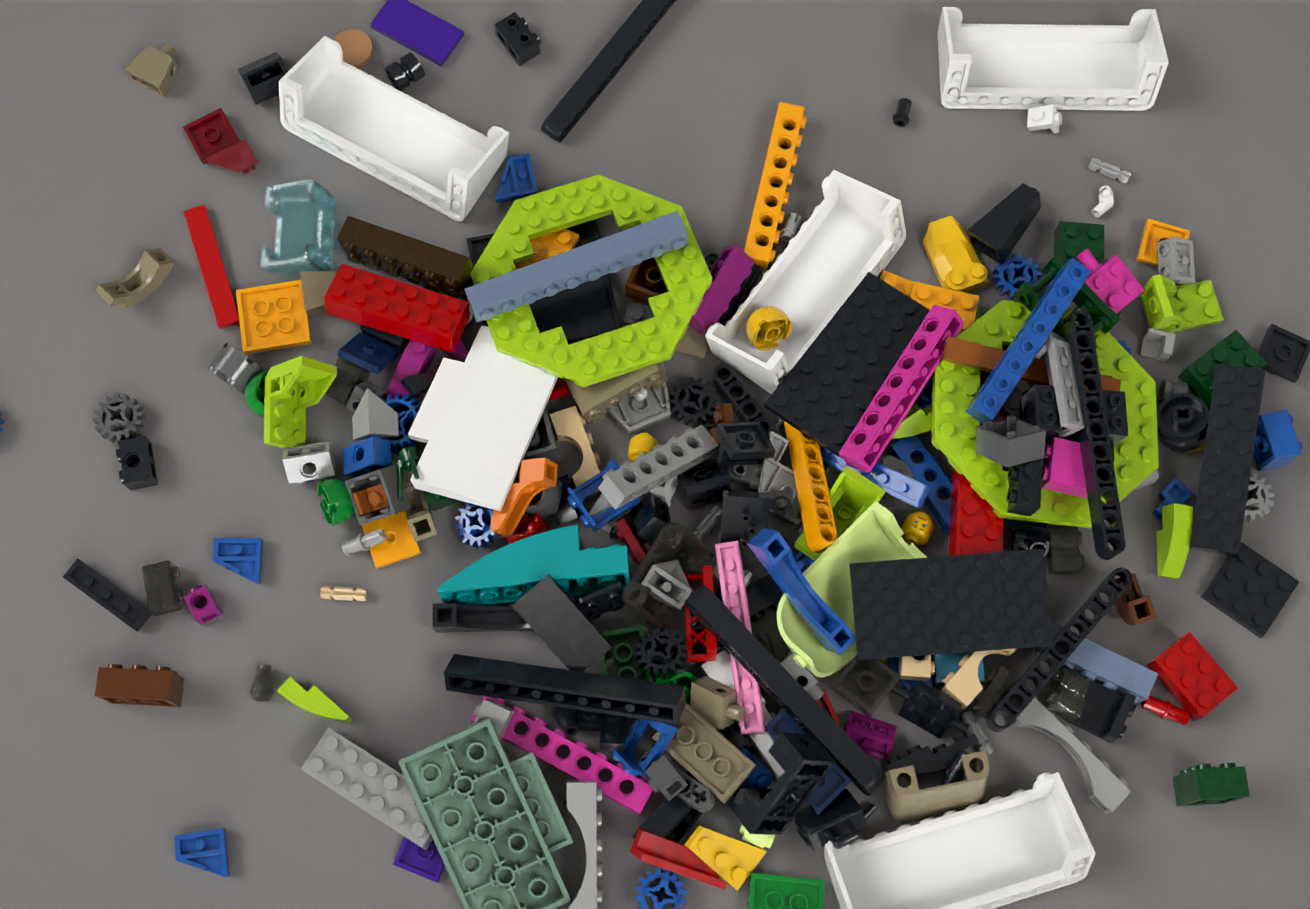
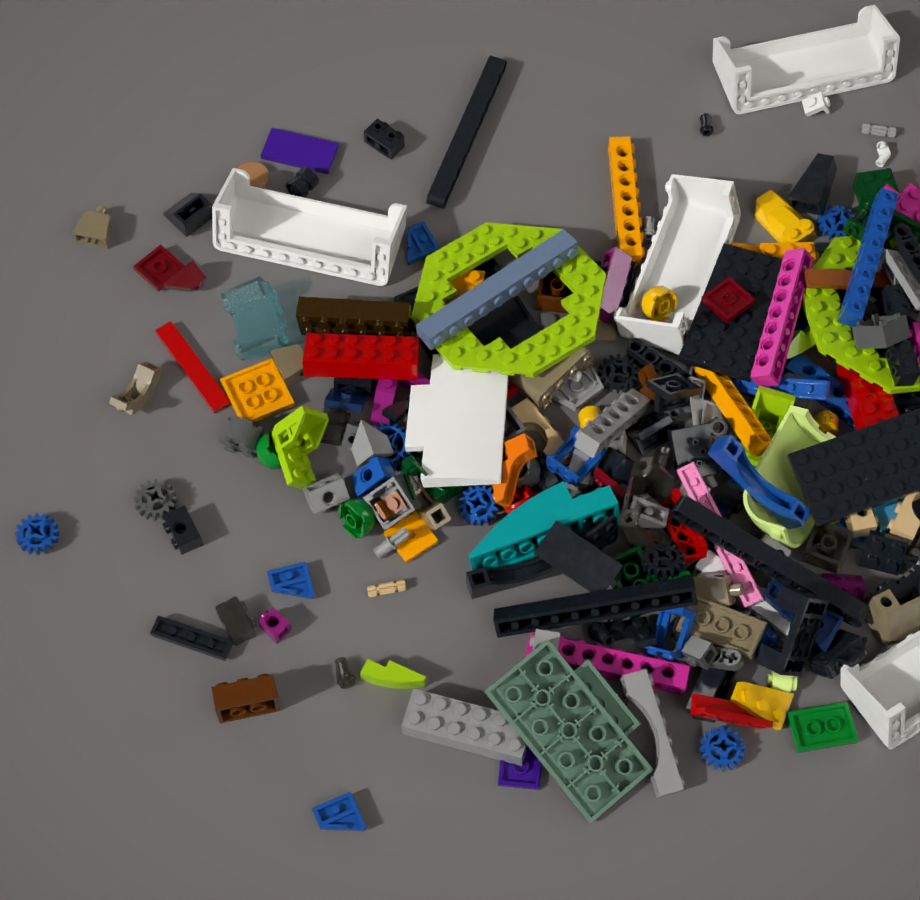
camera: 15 degrees left, 10 degrees down
(845, 348) = (728, 300): none -> dark red plate

